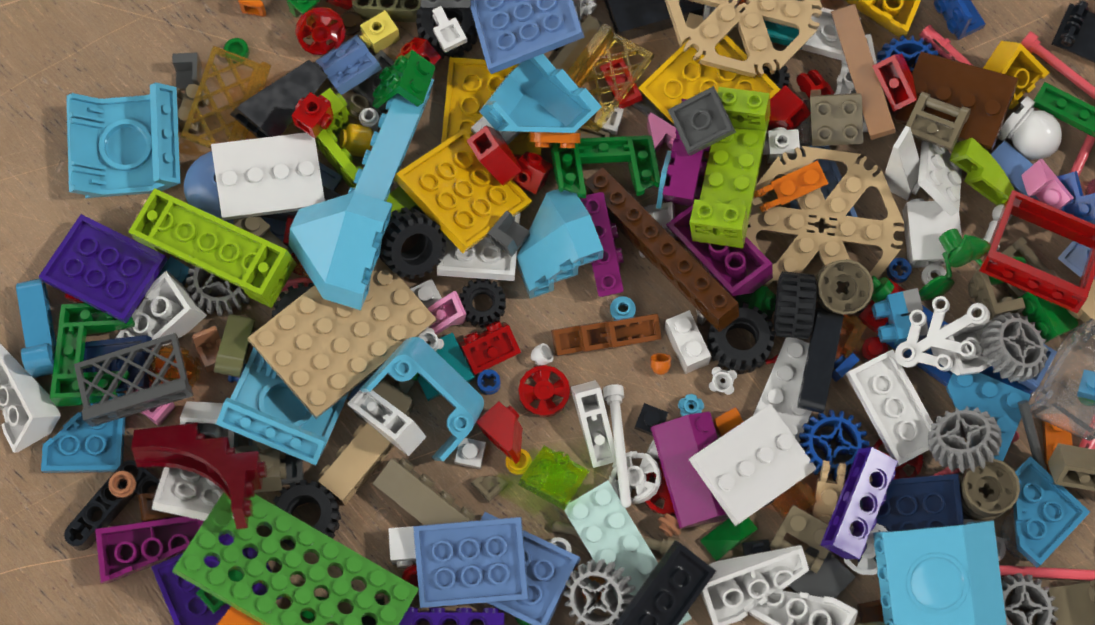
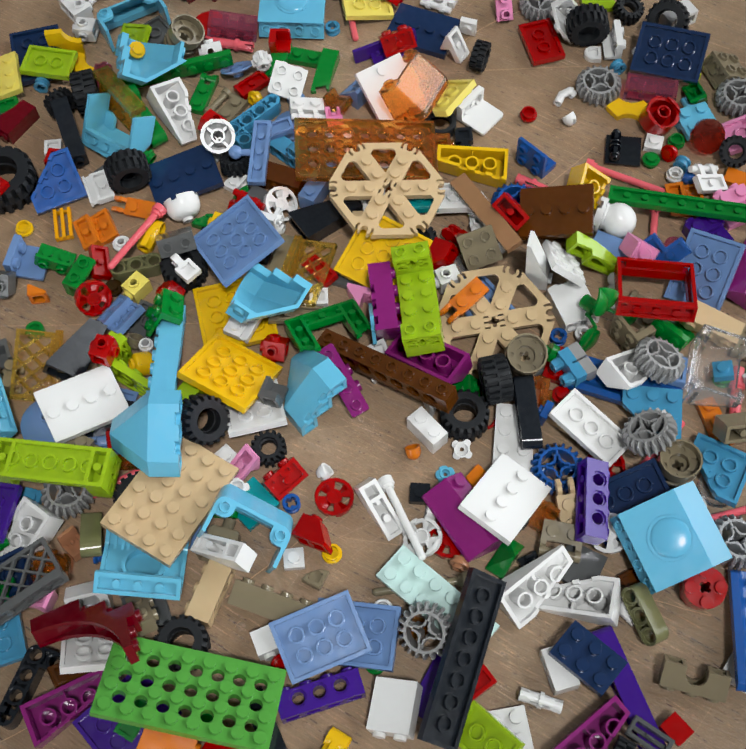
camera: 15 degrees left, 10 degrees down
(116, 479) = (27, 660): nougat plate -> none
(495, 154) = (246, 341): red slope -> none
(543, 139) = (292, 315): orange plate -> none
(554, 477) = (362, 555): clear neon green plate -> none
(606, 334) = (366, 442): dark orange slope -> none
(616, 314) = (372, 427): medium azure plate -> none
(701, 121) = (386, 272): dark grey tile -> none
(933, 128) = (550, 232): dark tan plate -> none
(938, 337) = (604, 368): white plant -> none
(1031, 433) = (692, 414): dark grey bar -> none

